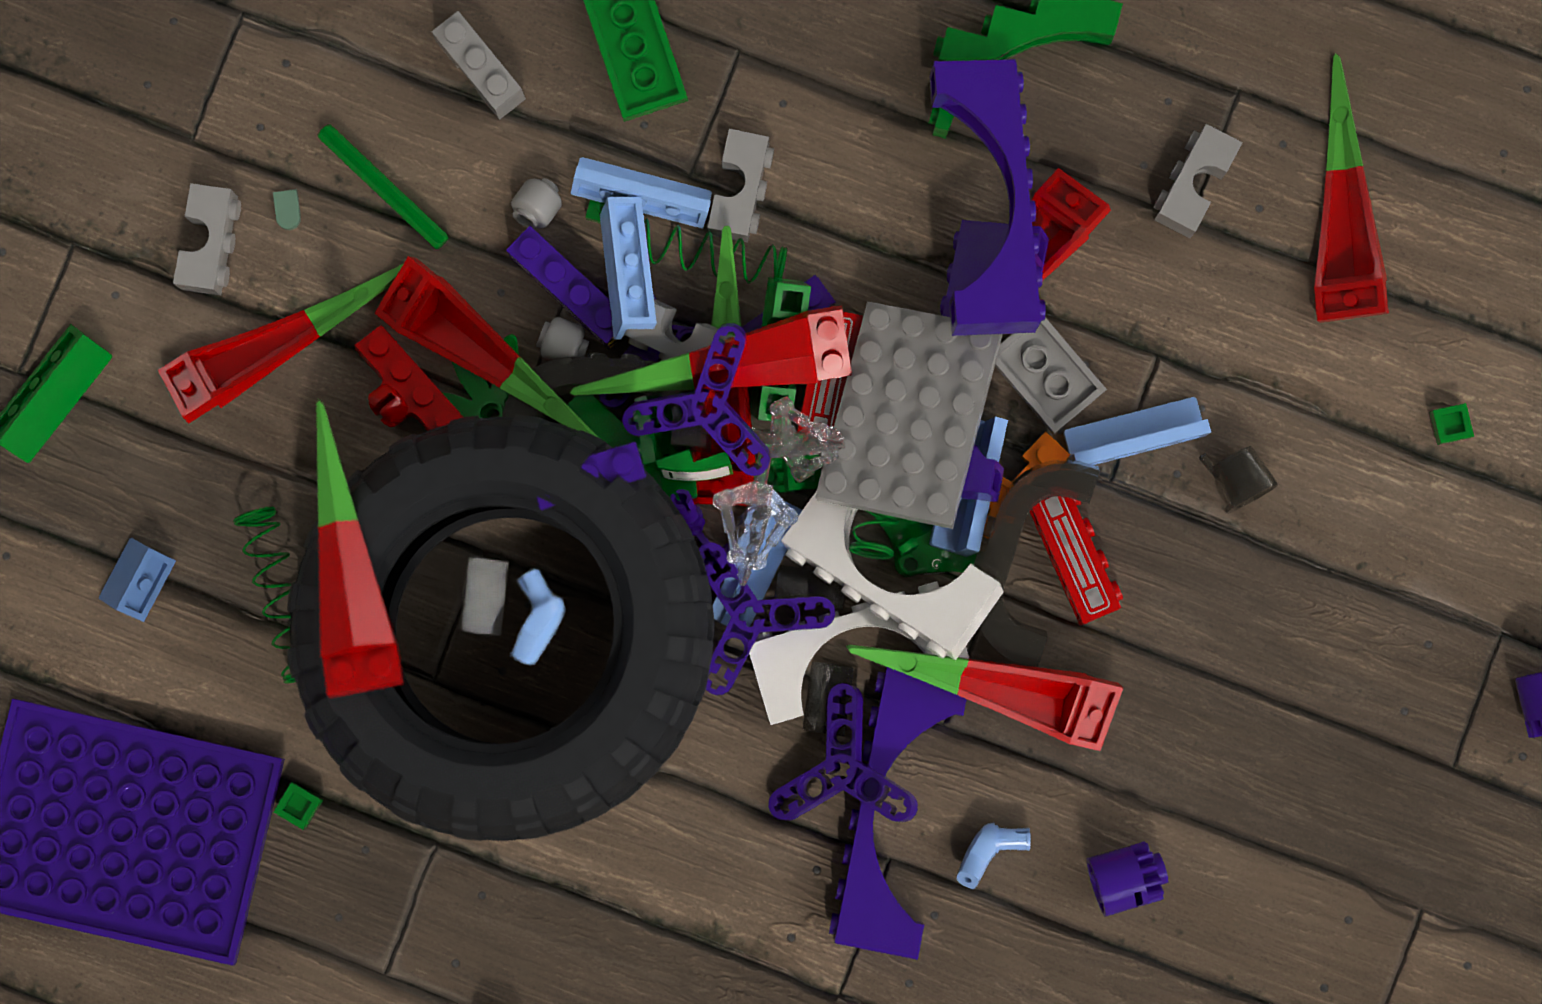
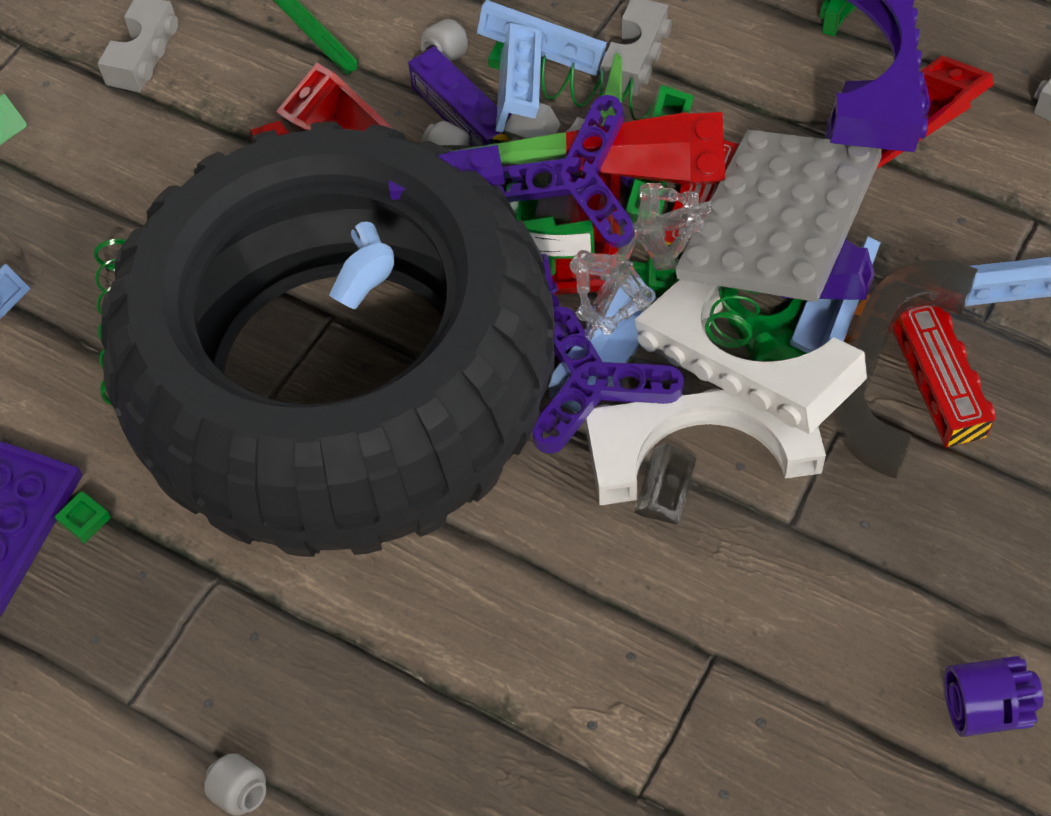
camera: 10 degrees right, 25 degrees down
(229, 367) = (136, 136): red plate -> none
(287, 209) = (218, 34): sand green piece -> none
(354, 623) = (172, 258): red plate -> none
(484, 596) = (311, 245): clear smoke slope -> none
(856, 775) = (682, 553): dark purple piece -> none
(868, 910) = (686, 698): dark purple arch -> none
(983, 848) = (827, 647): light blue arm -> none
(1048, 375) = (922, 216): light grey plate -> none
(1050, 700) = (914, 503): red plate -> none

